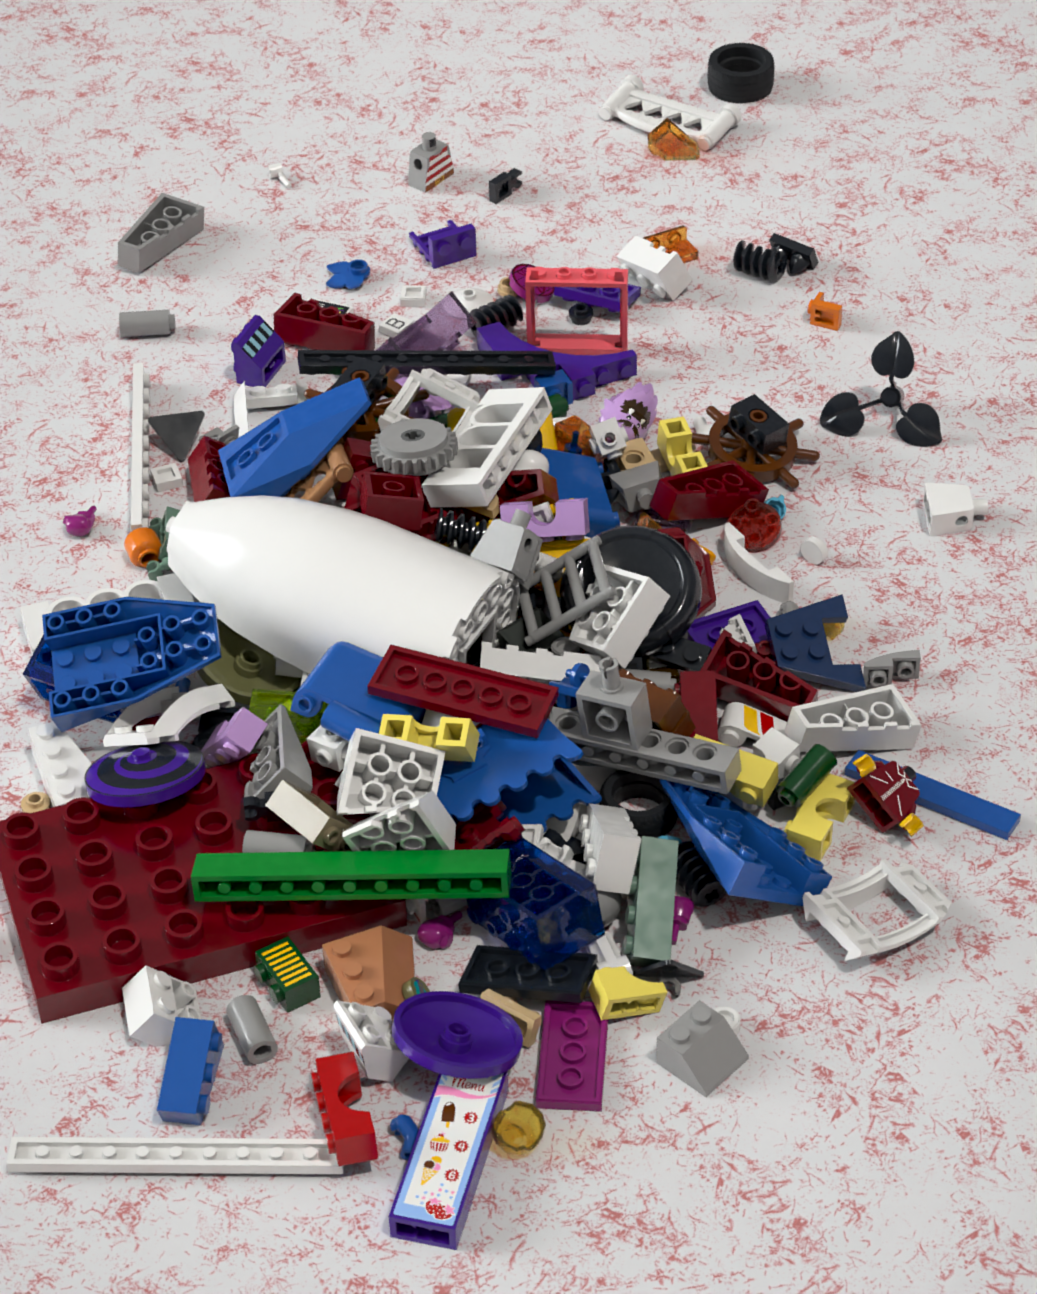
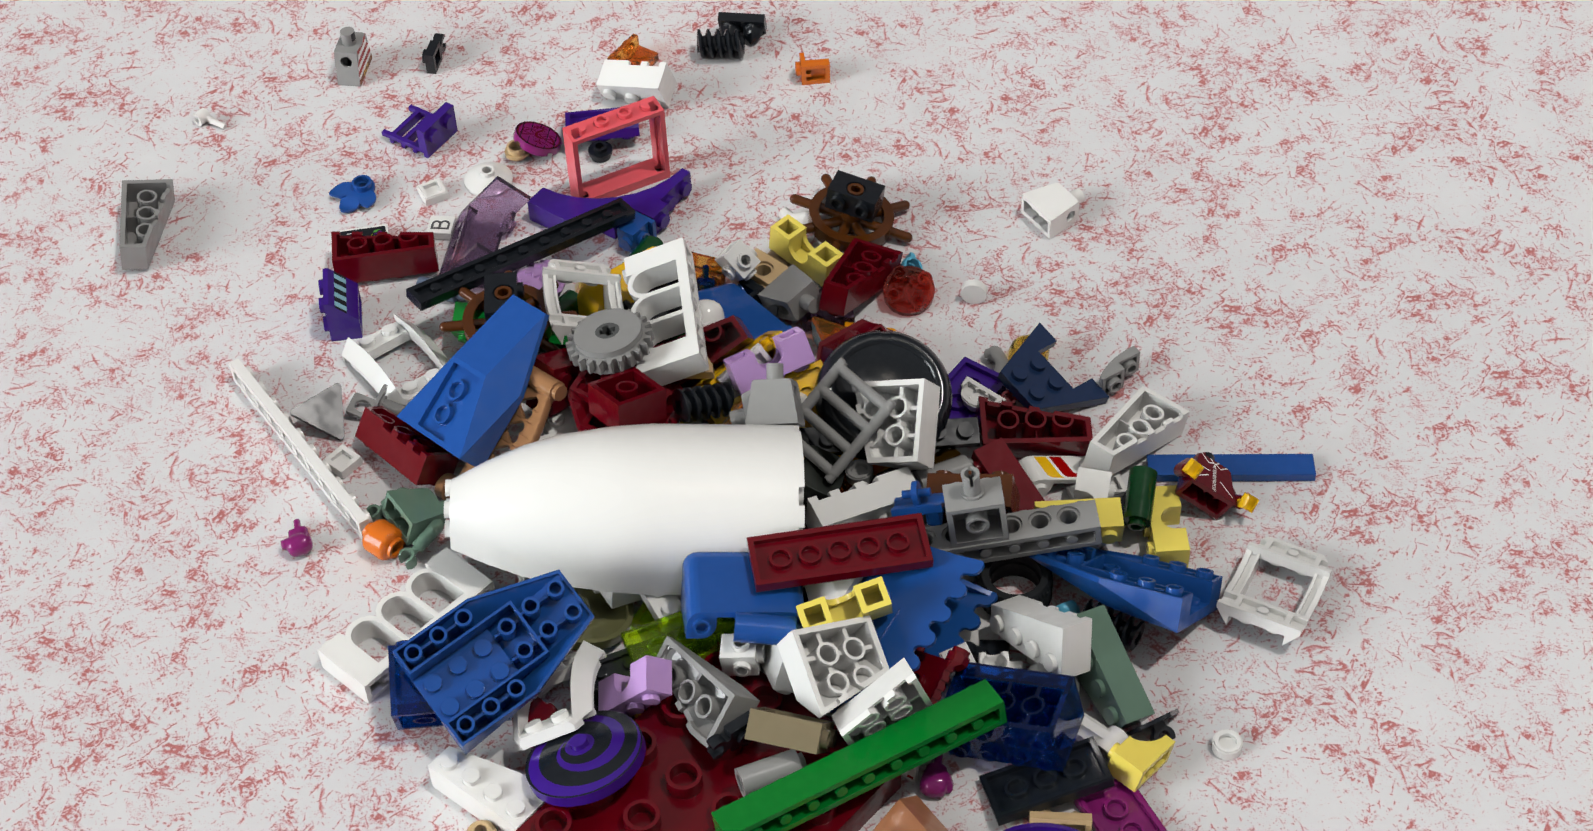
camera: 30 degrees left, 5 degrees up
(146, 323) = (201, 317): light grey brick -> none
(503, 310) = (534, 177): black piece -> none
(632, 409) = (728, 226): lavender head -> none
(700, 1049) = (1233, 778): light grey slope -> none
(771, 582) = (934, 331): white slope -> none
(892, 358) = (929, 92): black plant -> none

